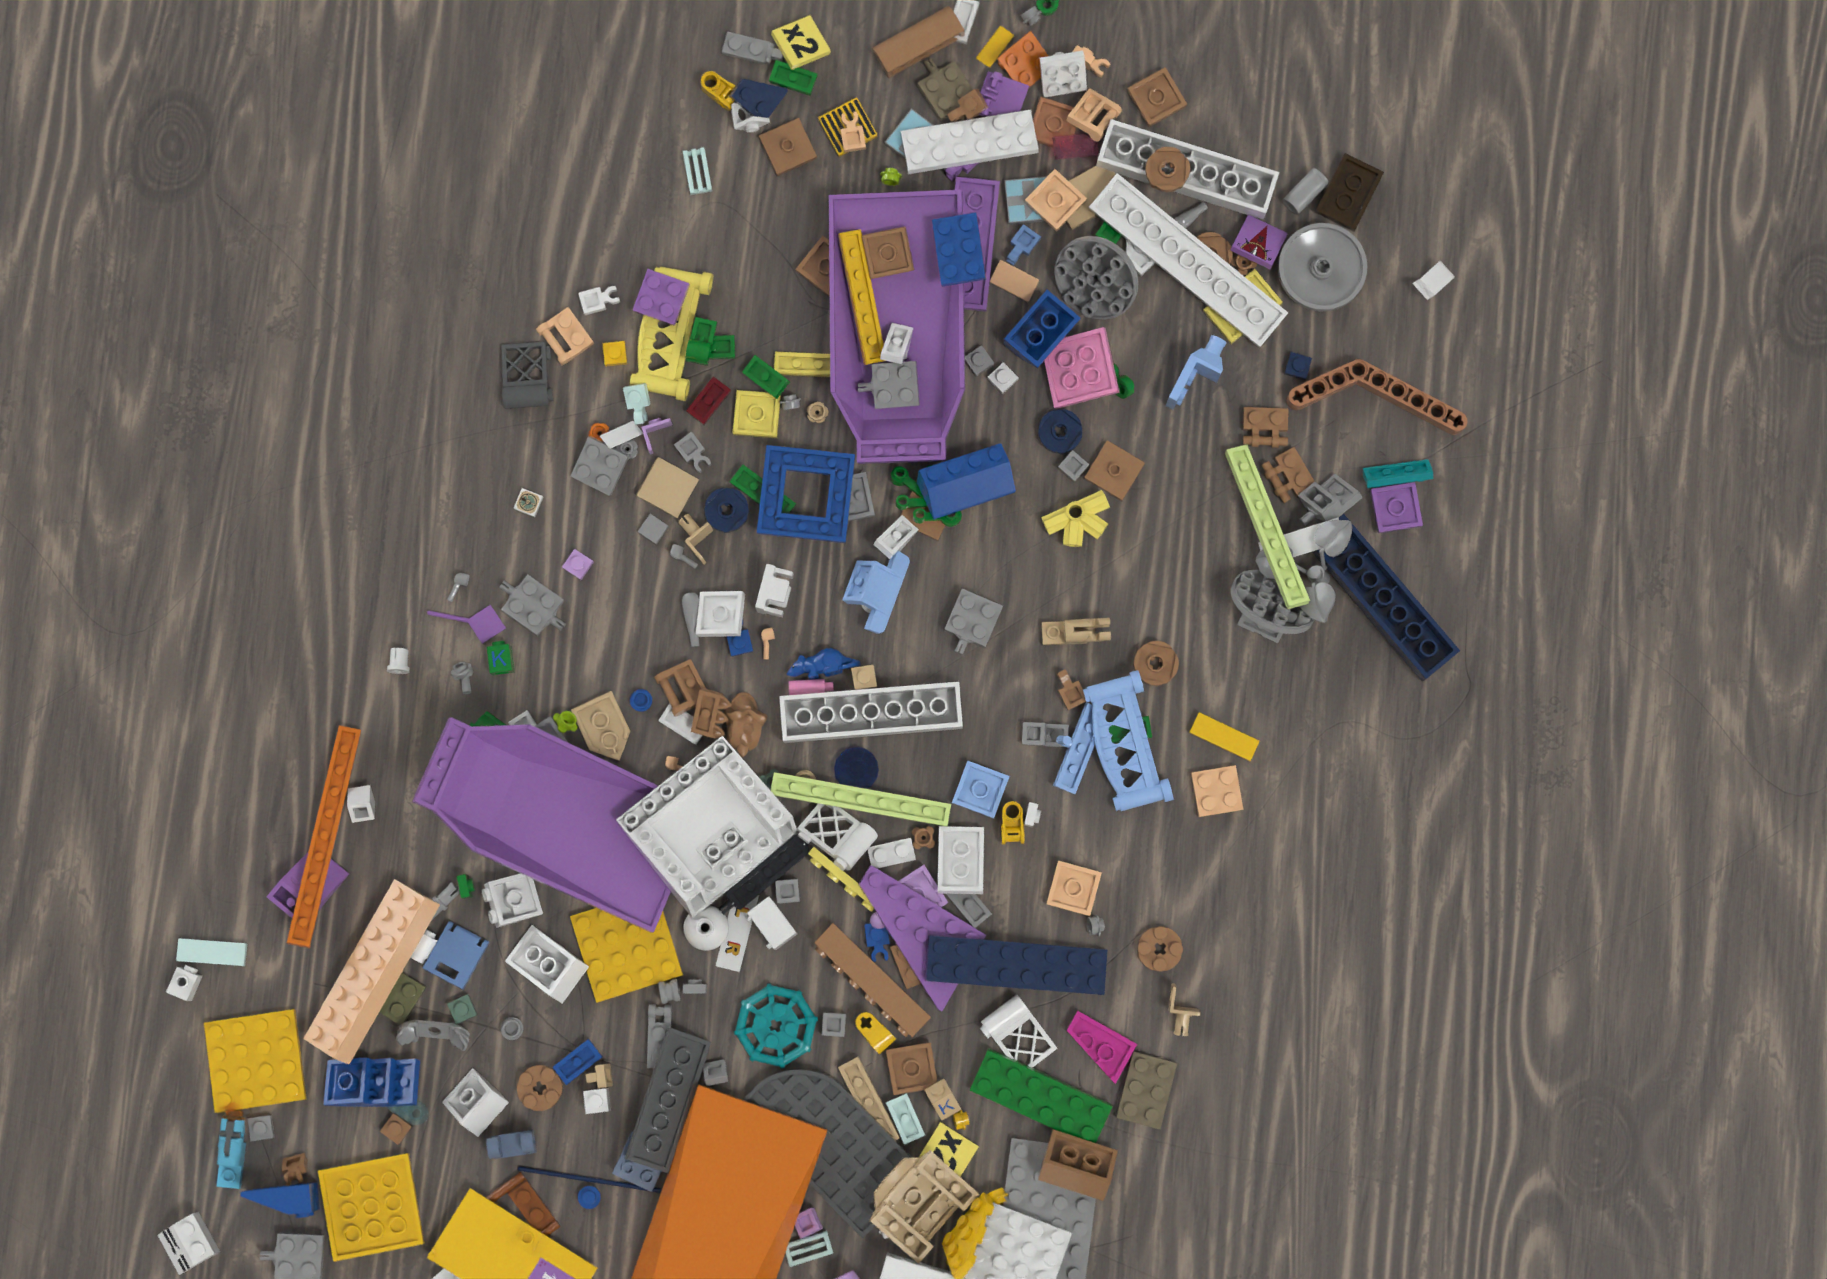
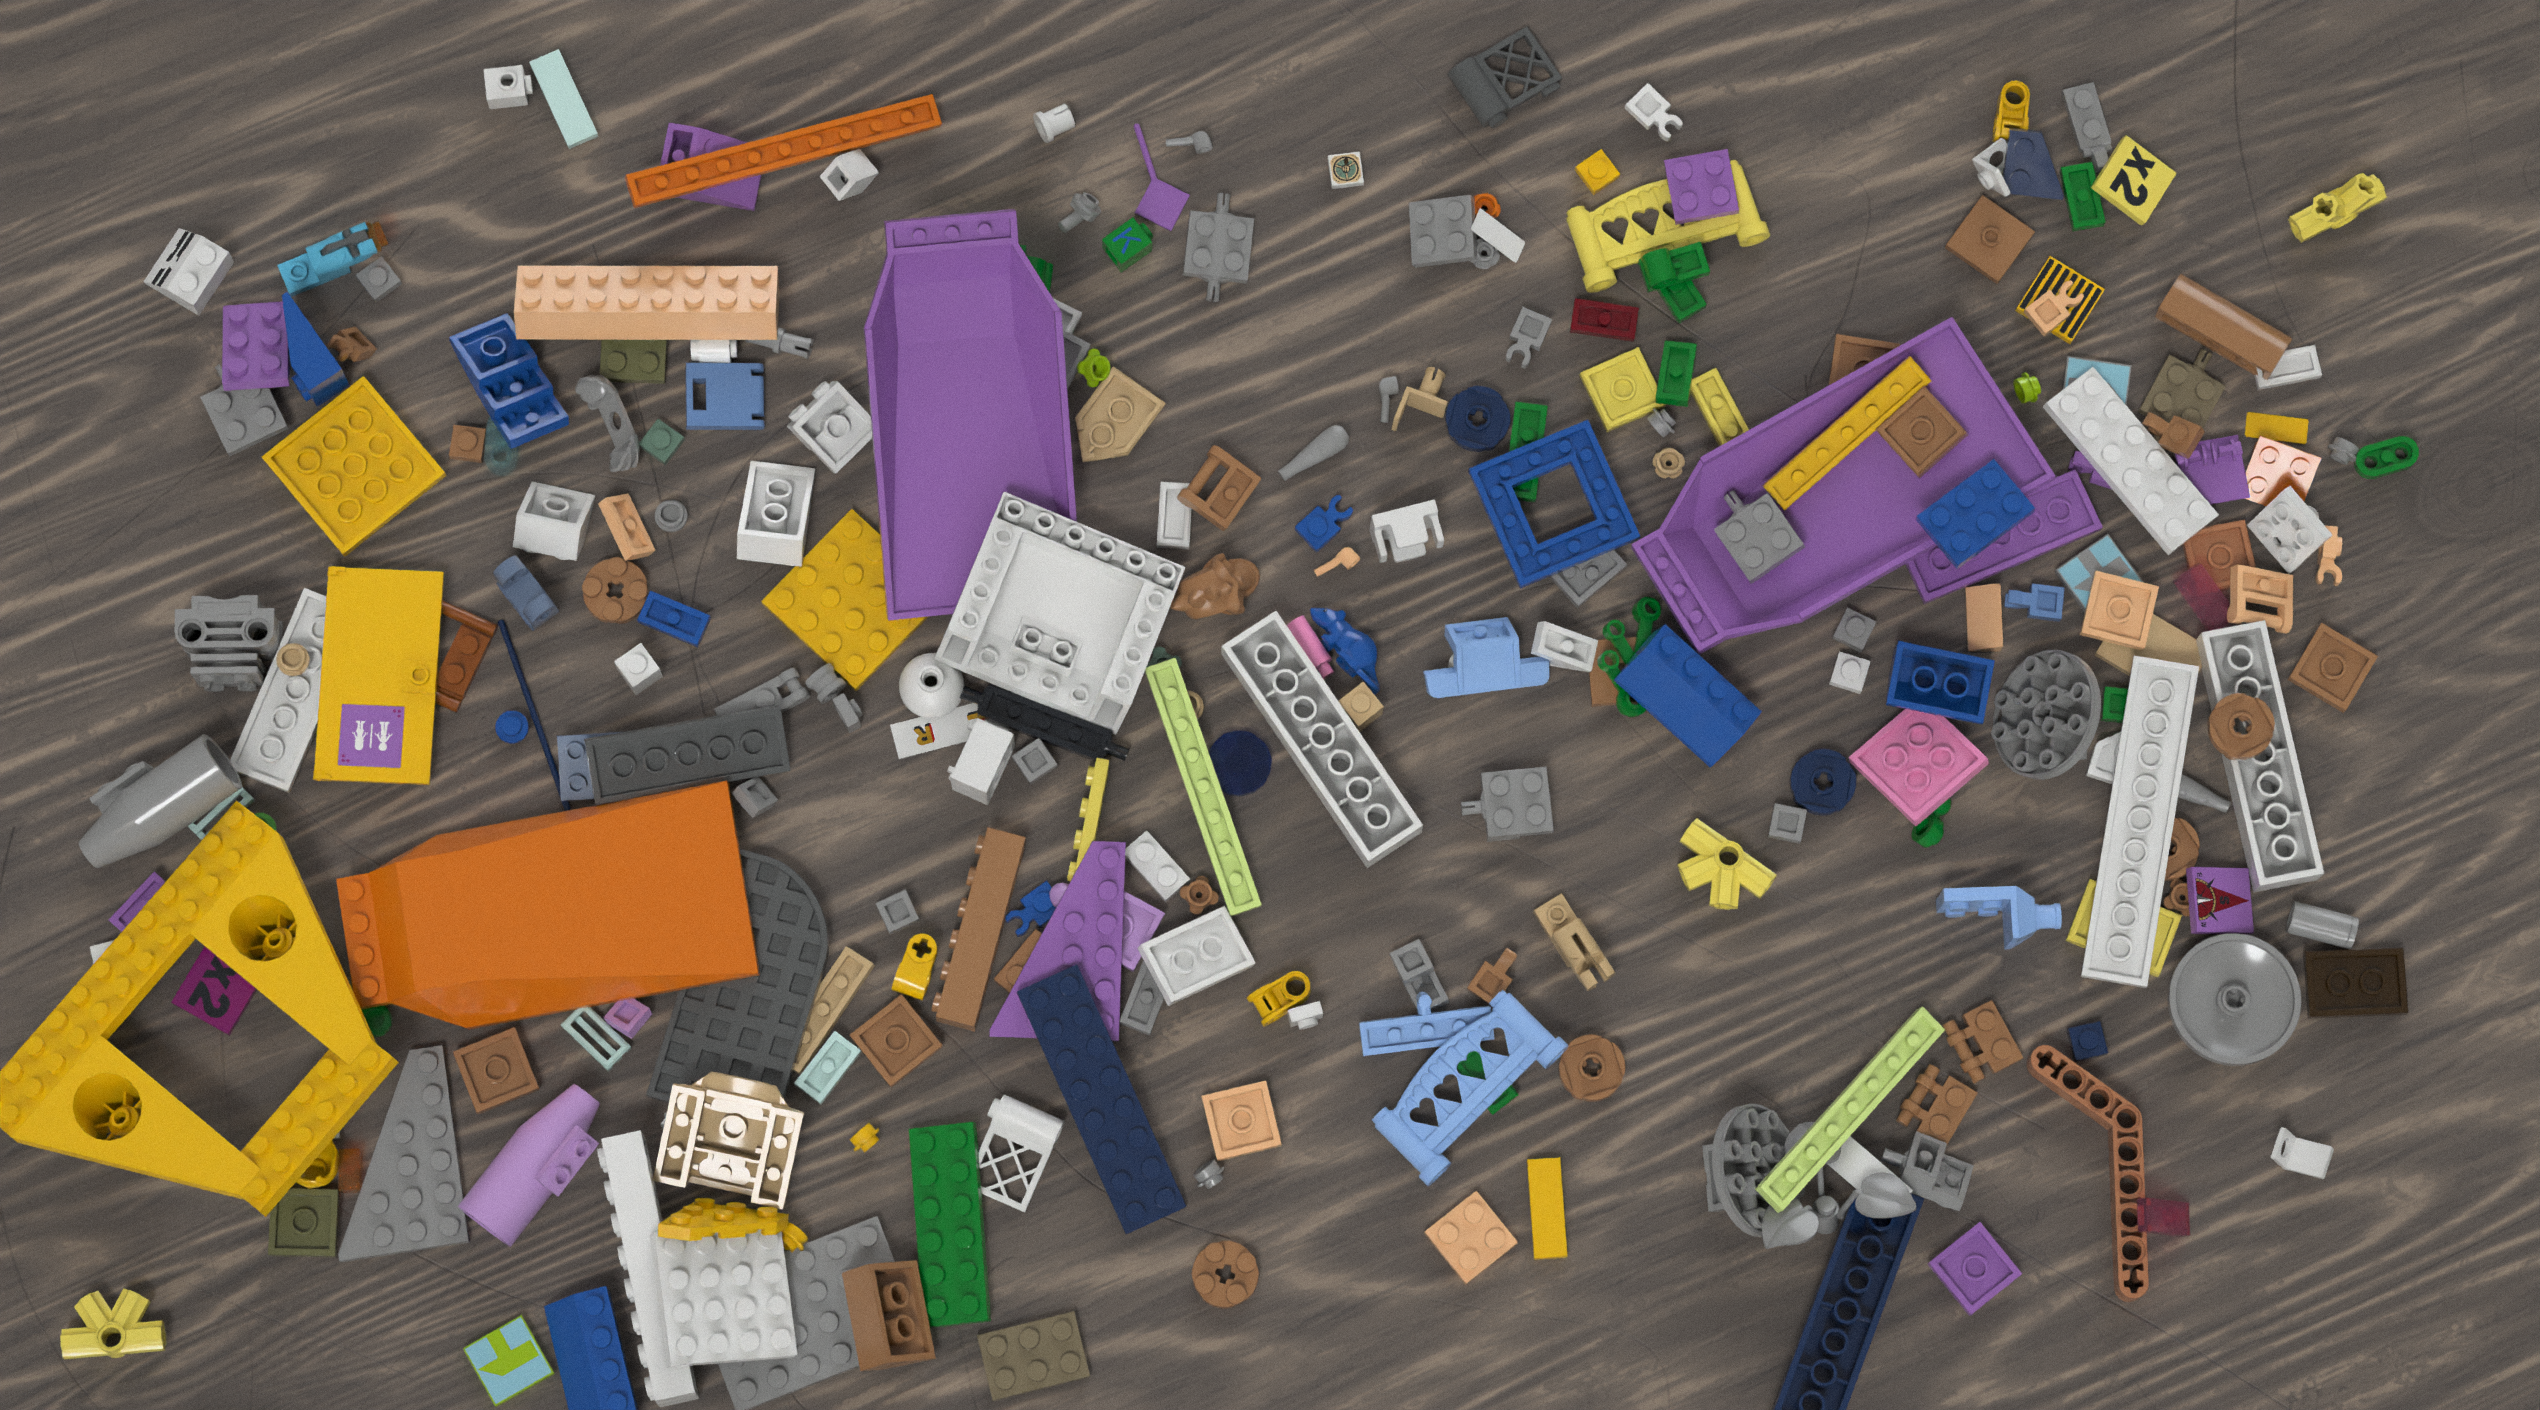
camera: 55 degrees right, 5 degrees down
(255, 1060) = (458, 226): yellow plate -> none
(261, 1229) = (255, 347): none -> medium lavender plate
(466, 886) = (818, 359): green plate -> none
(504, 1059) = (626, 527): none -> light nougat plate
(572, 333) = (1593, 103): light nougat plate -> none
(577, 564) = (1302, 274): lavender plate -> none
(601, 1076) = (672, 658): tan tile -> none
(637, 398) = (1555, 229): light aqua plate -> none
(641, 700) = (1174, 446): blue plate -> none
(653, 529) = (1401, 342): light grey tile -> none
(654, 425) = (1532, 269): lavender bracket -> none
(667, 487) = (1463, 329): tan slope -> none
(672, 763) = (1116, 527): light nougat hand -> none
(694, 153) = (1912, 127): light aqua tile -> none
(708, 713) = (1203, 536): medium nougat plate -> none
(720, 613) = (1339, 482): white plate -> none
(762, 1025) = (850, 822): teal plate -> none
(849, 847) = (1135, 806): white piece -> none
(897, 343) = (1812, 510): white slope -> none
(942, 1099) = (878, 1099): tan brick -> none
(951, 1148) = (821, 1147): light yellow tile -> none
(980, 789) = (1301, 933): light blue plate -> none
(1102, 1044) = (1060, 1268): dark pink wing -> none
(1114, 470) = (1812, 879): medium nougat plate -> none
(1182, 1014) = (1156, 1348): tan bracket -> none
(1397, 473) = (2020, 1246): teal plate -> none
(1427, 381) = (2163, 1217): none -> clear pink plate

